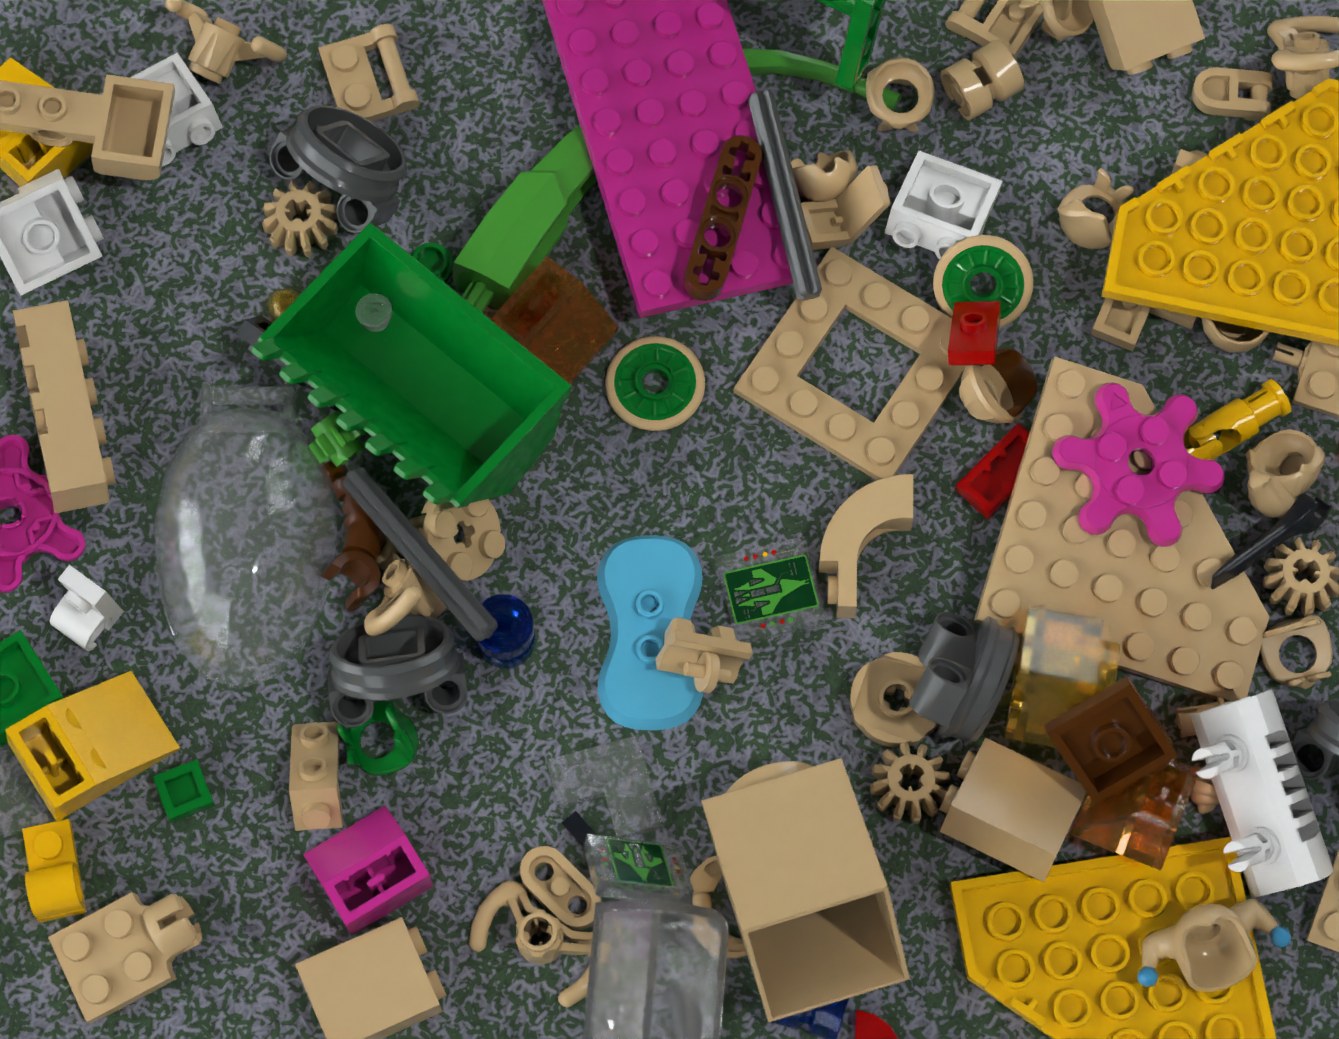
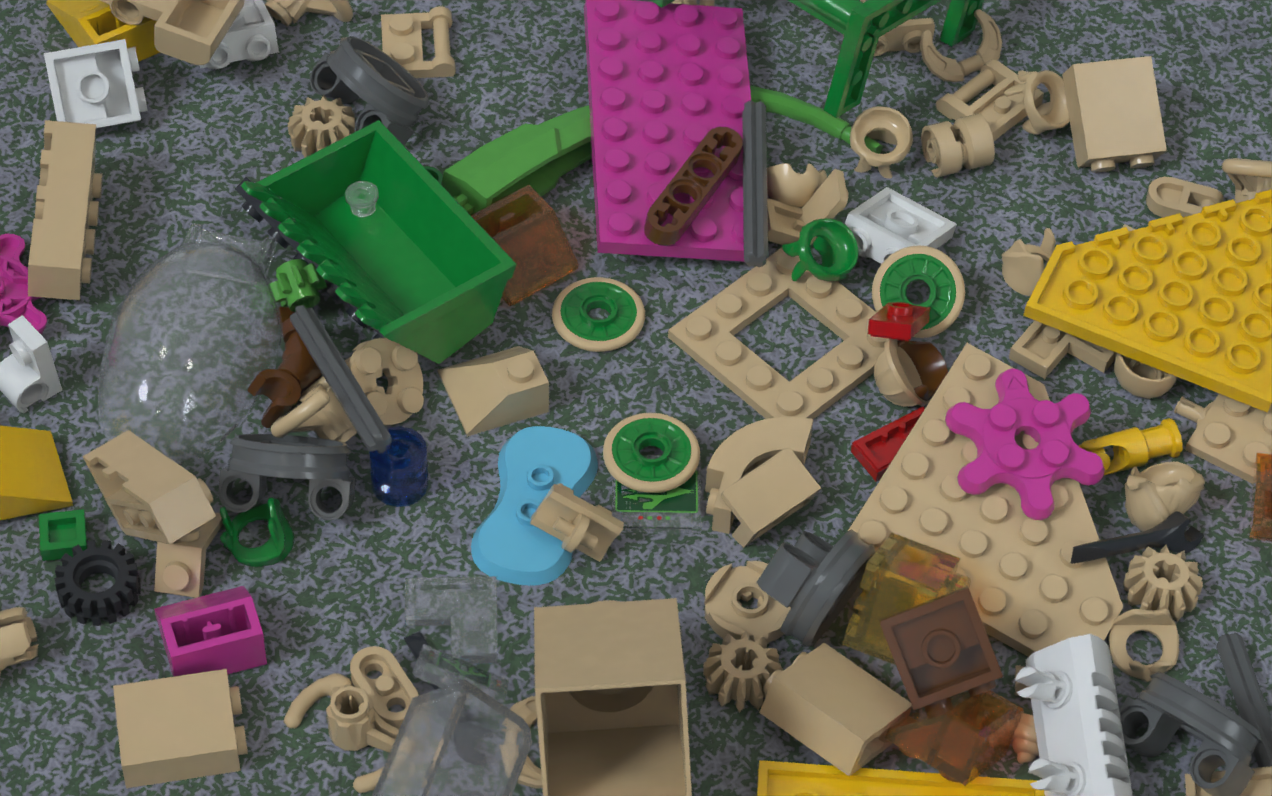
camera: 10 degrees right, 20 degrees down
(222, 815) = (104, 603): none -> black tyre
(266, 738) = (148, 490): none -> tan wedge
(573, 502) = (497, 389): none -> tan slope
(748, 576) = (647, 475): none -> green wheel
(888, 255) = (833, 242): none -> green piece
(890, 576) = (769, 495): none -> tan panel

